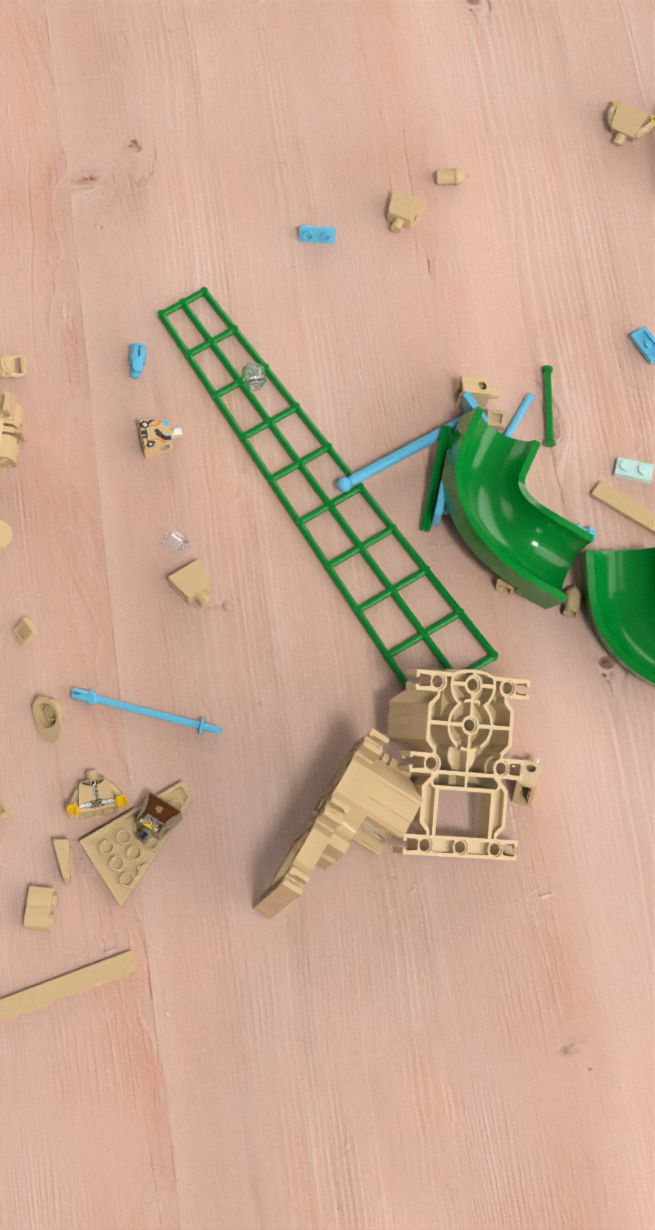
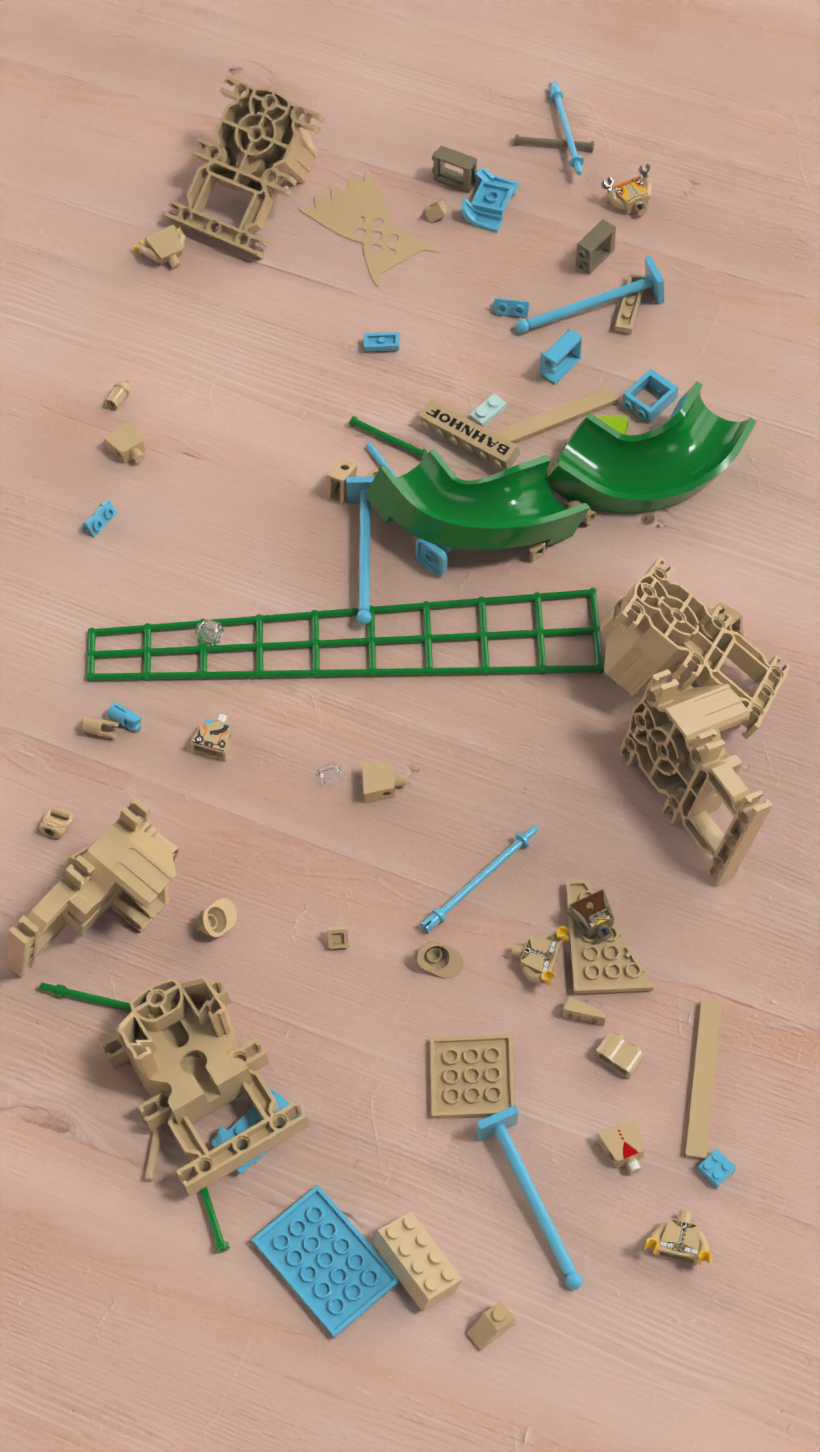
camera: 55 degrees left, 5 degrees down
(115, 346) = (97, 726): none -> tan hinge
(435, 478) = (404, 547): green axle -> none
(591, 467) = (469, 434): none -> tan brick

